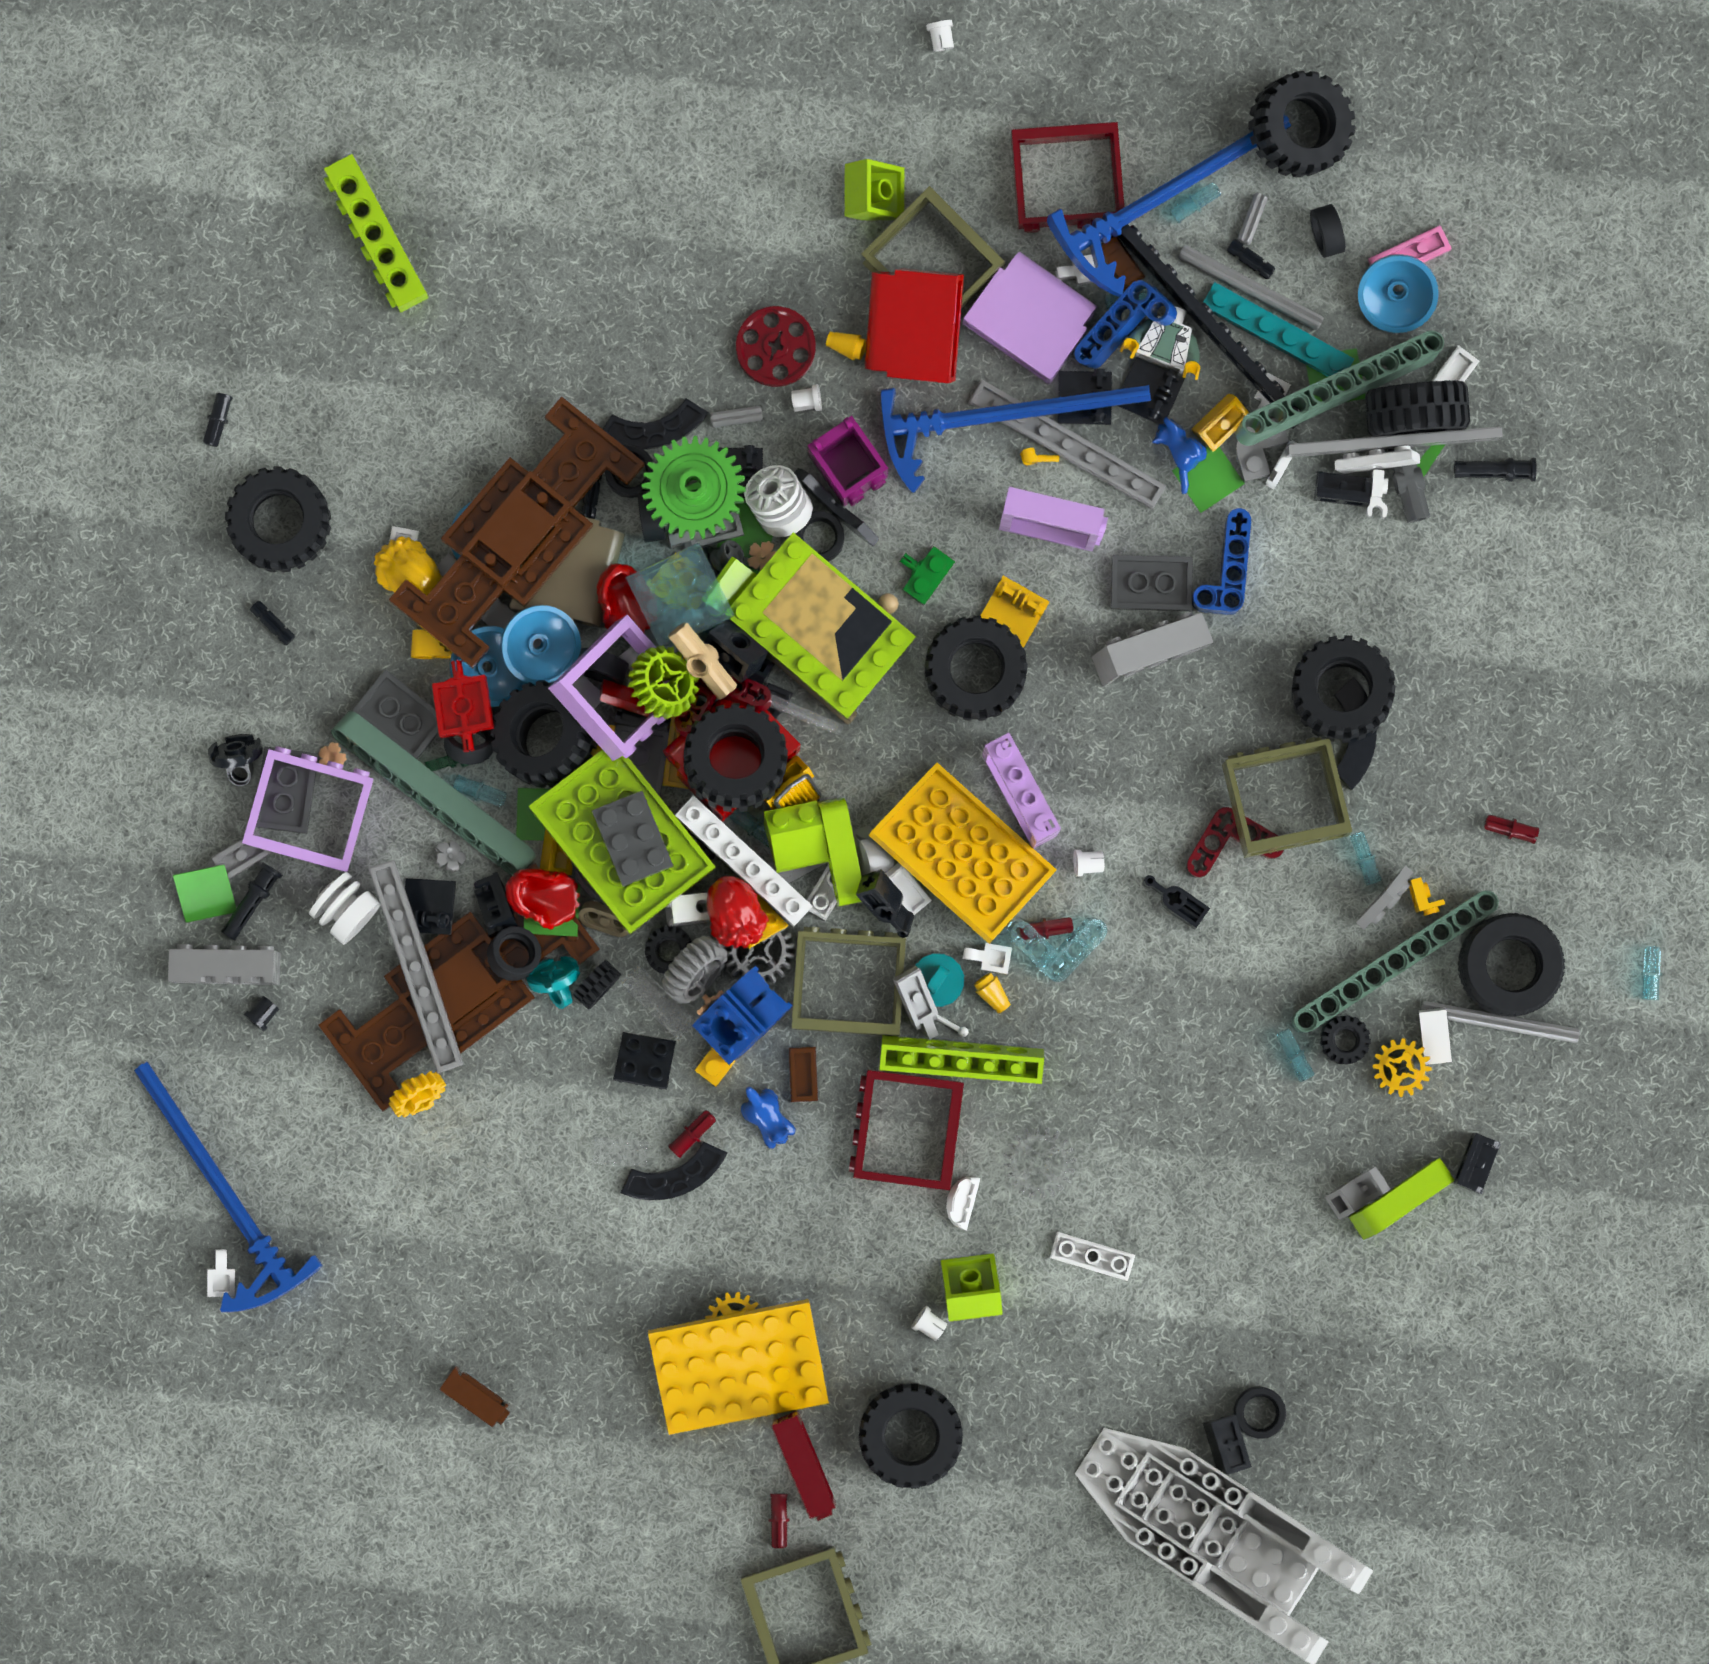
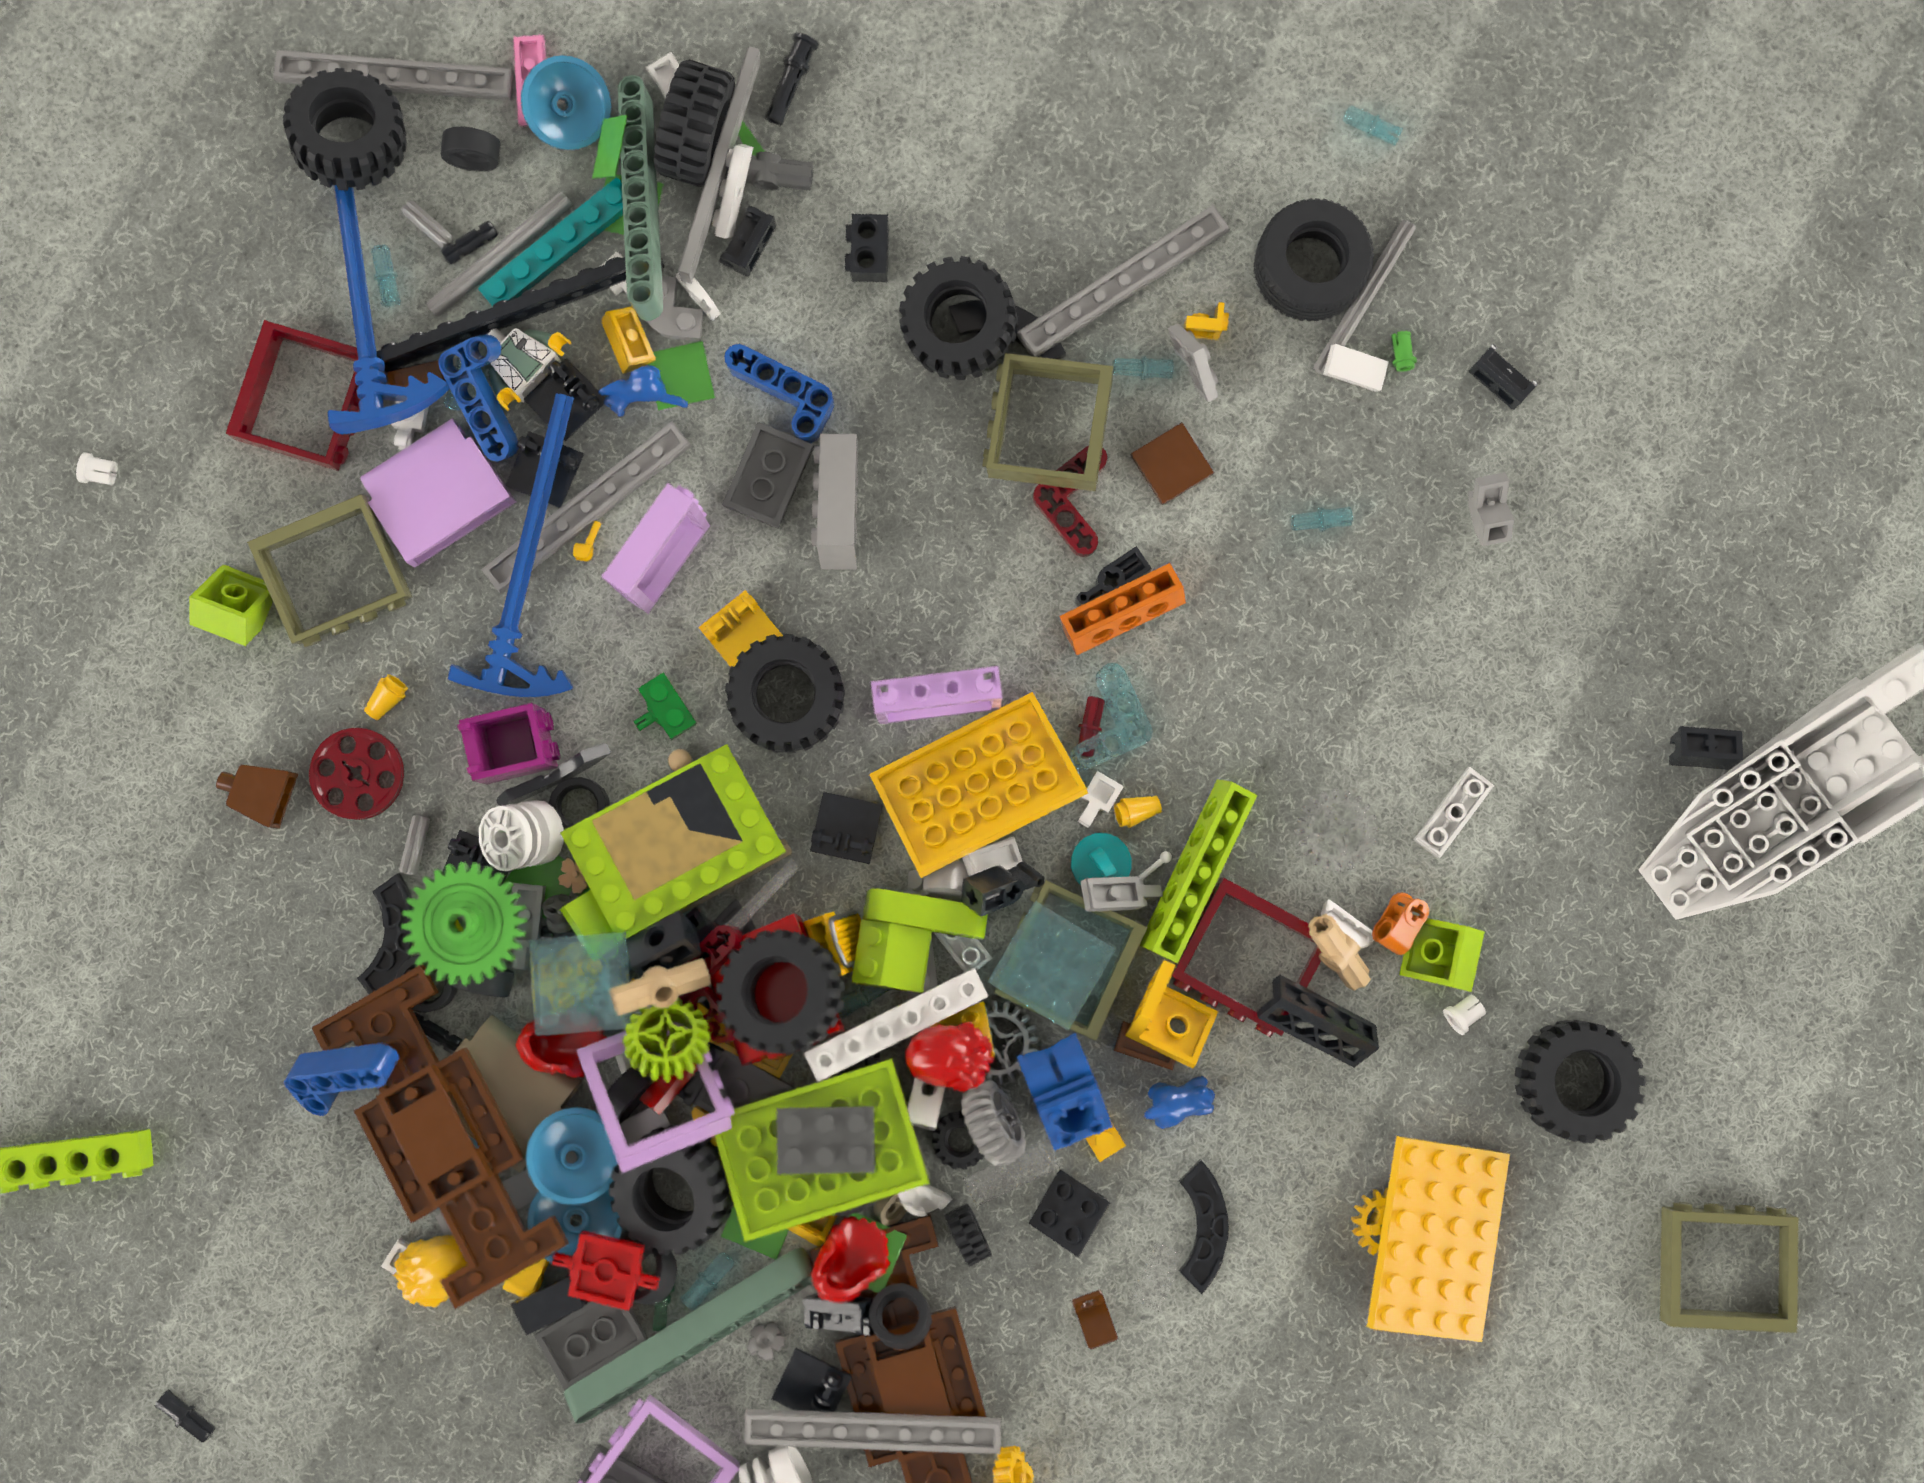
camera: 65 degrees left, 0 degrees up
(257, 490) = (290, 1423): black tyre -> none
(272, 623) = (433, 1440): black axle -> none
(331, 753) = (604, 1430): light nougat plant -> none
(414, 671) = (546, 1305): none -> black hinge
(526, 418) = (321, 1075): none -> blue beam
(555, 979) = (943, 1279): teal tile -> none
(568, 1112) = (1095, 1319): none -> reddish brown bracket
(611, 937) = (923, 1200): none -> white tile
(692, 1133) = (1167, 1191): dark red axle -> none
(708, 1002) = (1034, 1117): light nougat plant -> none
(730, 275) = (258, 793): none -> reddish brown torso
(779, 1520) = (1615, 1256): dark red axle -> none
(804, 1465) = (1581, 1214): dark red window -> none
(807, 399) = (426, 762): white bush -> none
(833, 1068) = (1161, 1006): none -> yellow bracket
(838, 967) = (1051, 965): none -> clear light blue plate
(881, 1207) = (1327, 1020): none -> black fence
(885, 760) = (846, 828): none -> black hinge
(914, 324) = (389, 615): red piece -> none
(939, 1198) = (1339, 952): none -> tan piece
(980, 1242) = (1398, 925): none -> orange piece
(1088, 862) = (1037, 656): white bush -> none
(1153, 917) = (1123, 609): none -> orange brick
(1280, 1409) = (1706, 698): black tyre -> none
(1293, 913) = (1172, 463): none -> reddish brown tile
(1357, 1028) = (1333, 445): black tyre -> none
(1369, 140) = (402, 74): none -> light grey tile
(1374, 344) = (609, 147): none -> bright green piece
(1378, 487) = (763, 202): white plate -> none
(1378, 596) = (872, 248): none -> black brick
(1397, 1078) = (1386, 422): yellow gear -> none
(1401, 1199) = (1514, 455): lime beam -> none
(1407, 958) = (1267, 365): sand green beam -> none
(1432, 814) = (1123, 282): none -> light grey tile
(1465, 1071) = (1403, 352): none -> bright green pin
(1511, 828) = (1169, 207): dark red axle -> none

